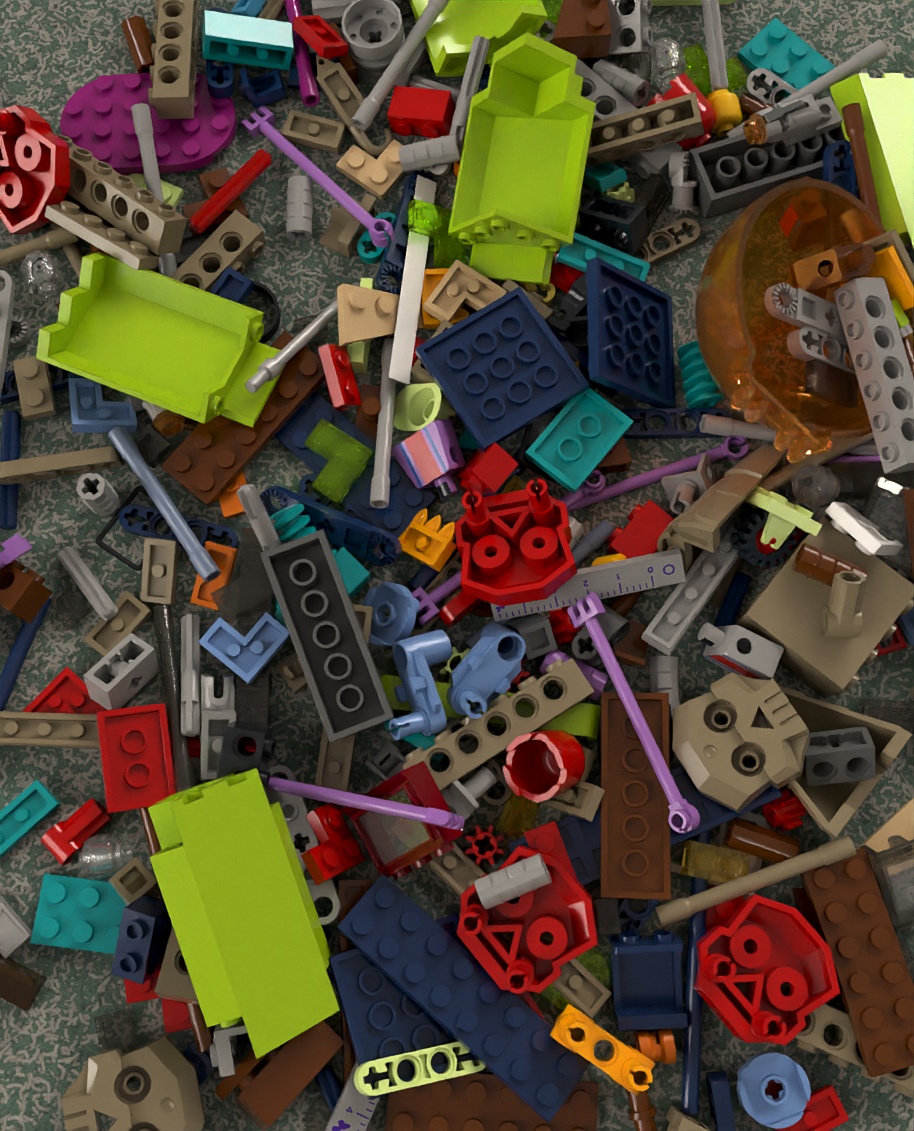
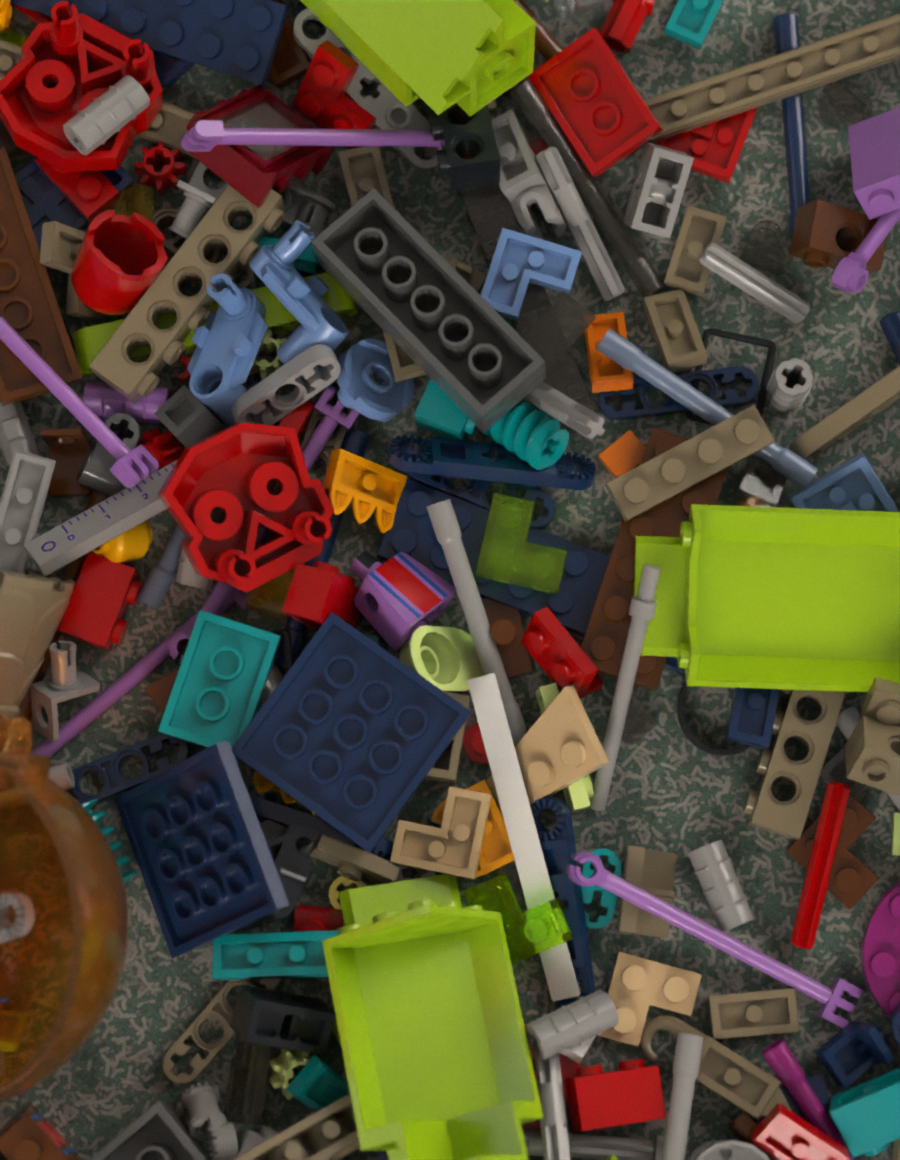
camera: 165 degrees right, 5 degrees up
(192, 463) = (689, 463): none -> dark tan plate
(455, 622) = (290, 373): none -> light grey beam

